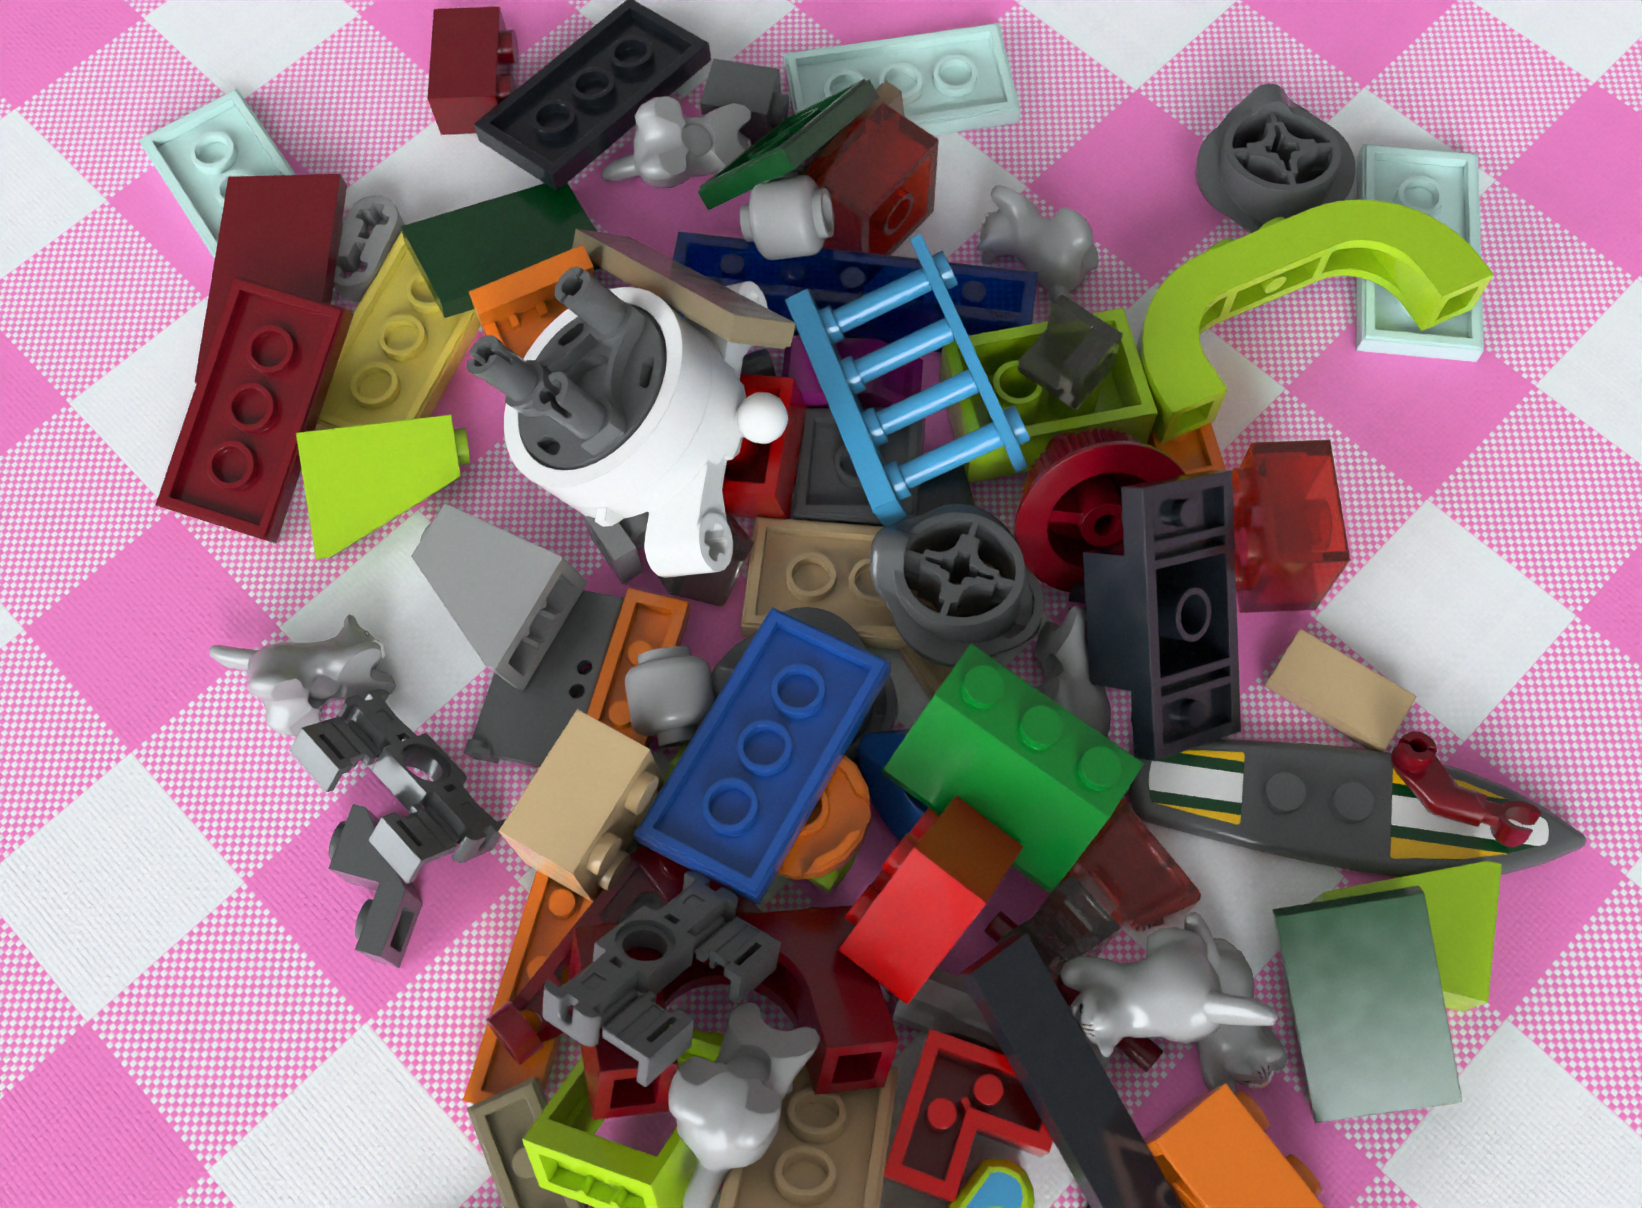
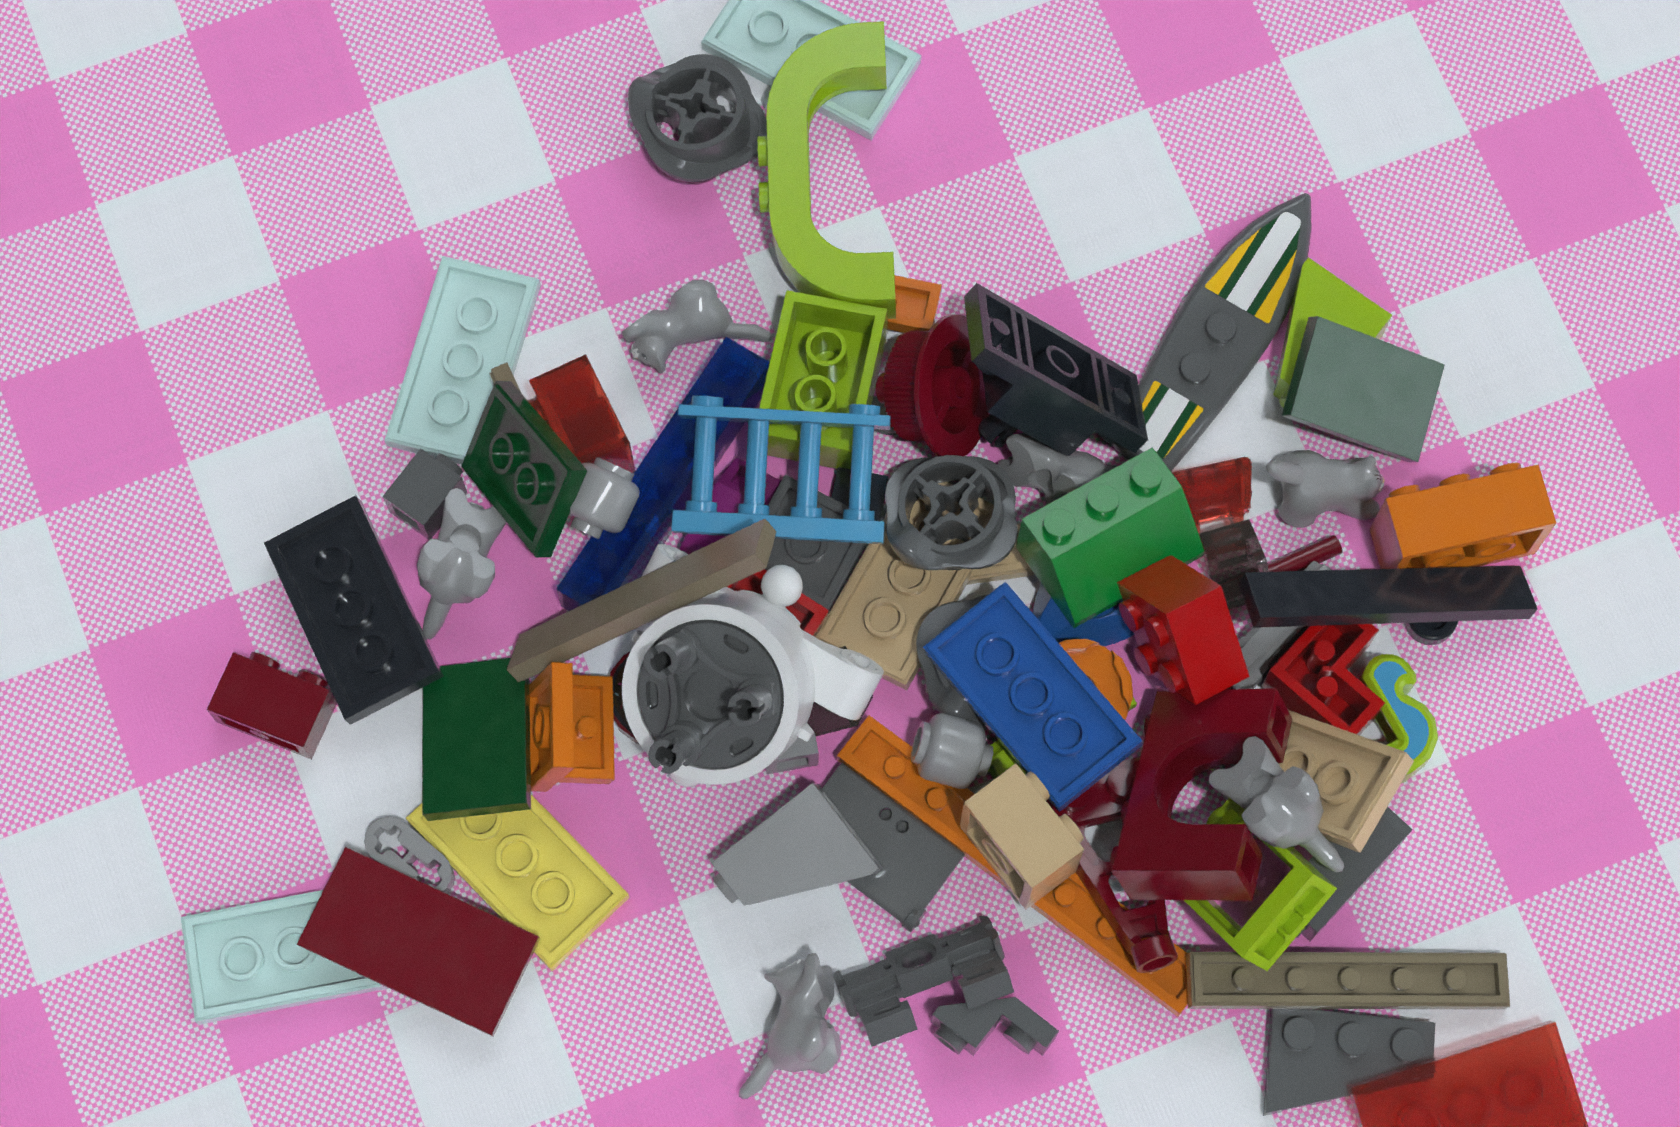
camera: 70 degrees left, 5 degrees up
(253, 395) = (544, 991): dark red tile -> none
(374, 474) = (654, 914): lime slope -> none
(622, 991) = (1176, 844): dark grey piece -> none
(1071, 353) = (819, 346): clear smoke panel -> none
(1164, 995) = (1313, 508): light grey animal -> none
(1287, 526) = (1011, 261): clear red brick -> none
(1340, 691) = (1135, 294): tan tile -> none
(1441, 796) = (1234, 270): dark red arm -> none

